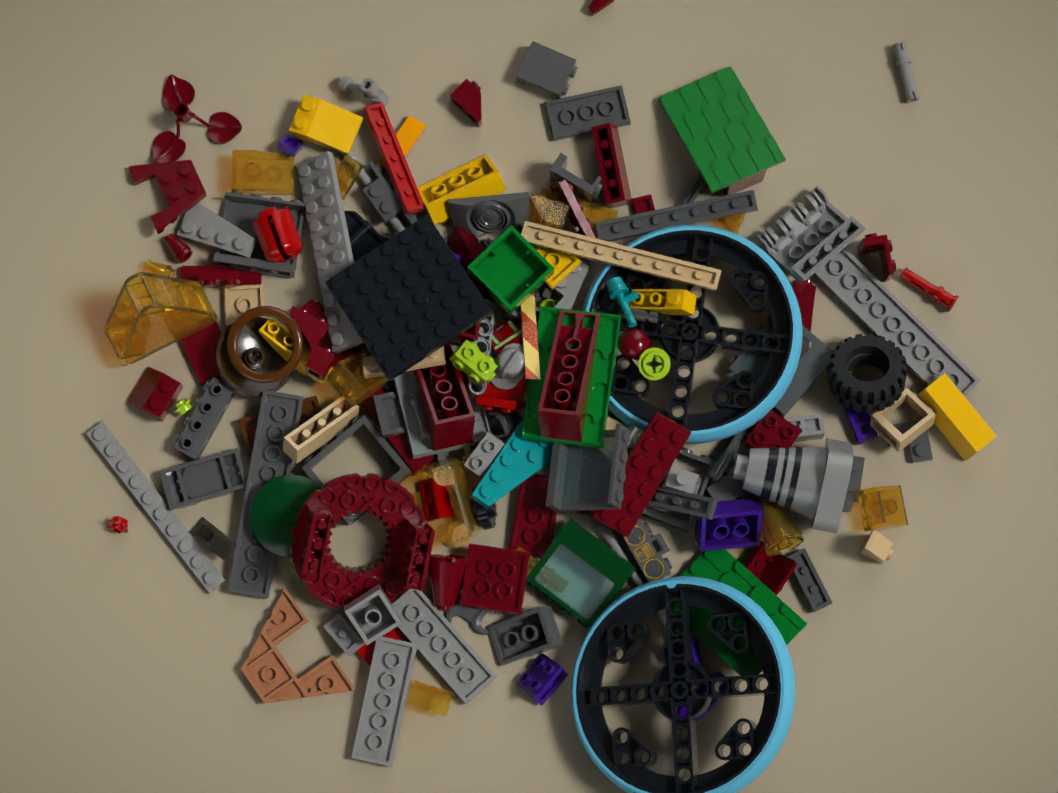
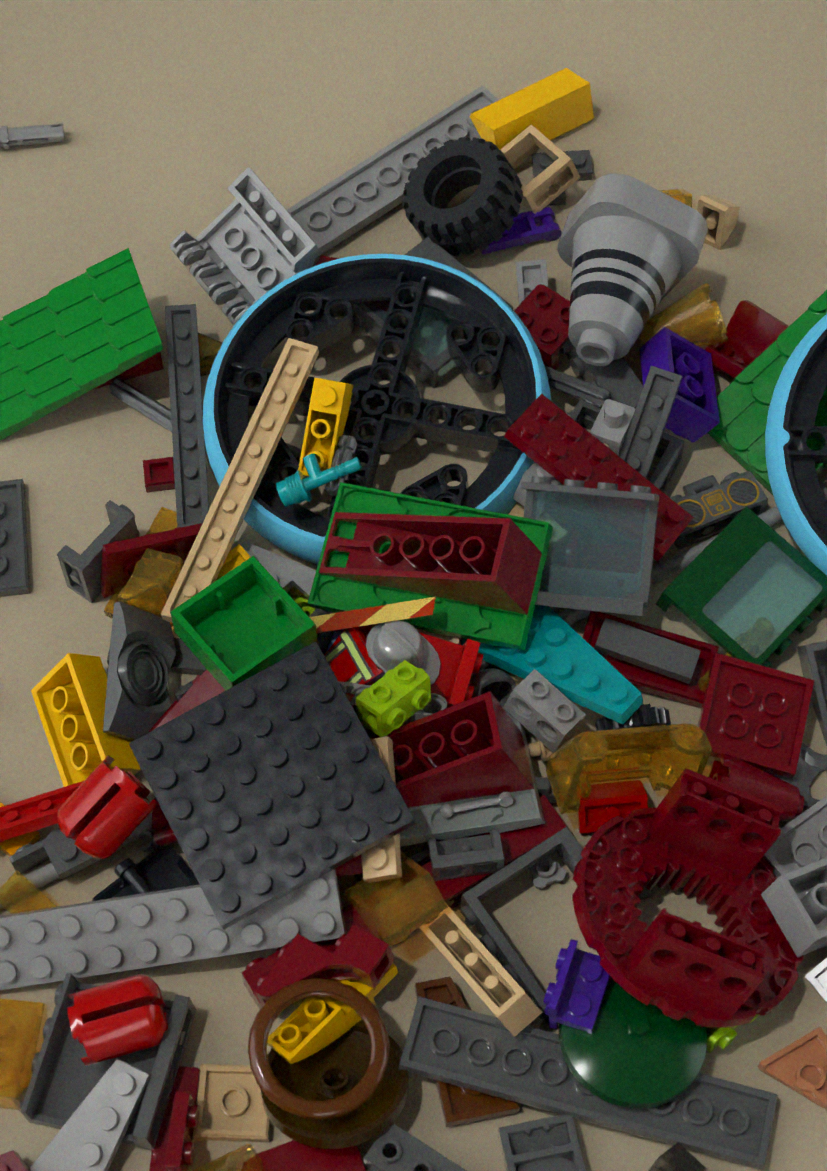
camera: 80 degrees left, 20 degrees down
(305, 480) = (578, 989): none -> dark purple bracket
(406, 208) = (105, 810): none -> red cylinder
(535, 515) = (647, 650): none -> dark grey tile
(611, 165) = (84, 501): dark red brick -> none
(633, 343) = (388, 471): dark red hair -> none
(659, 371) = (435, 439): lime gear -> none
(810, 581) = (776, 300): dark grey plate -> none
(880, 243) = (291, 170): dark red bracket -> none
(936, 293) = (350, 126): red pin -> none

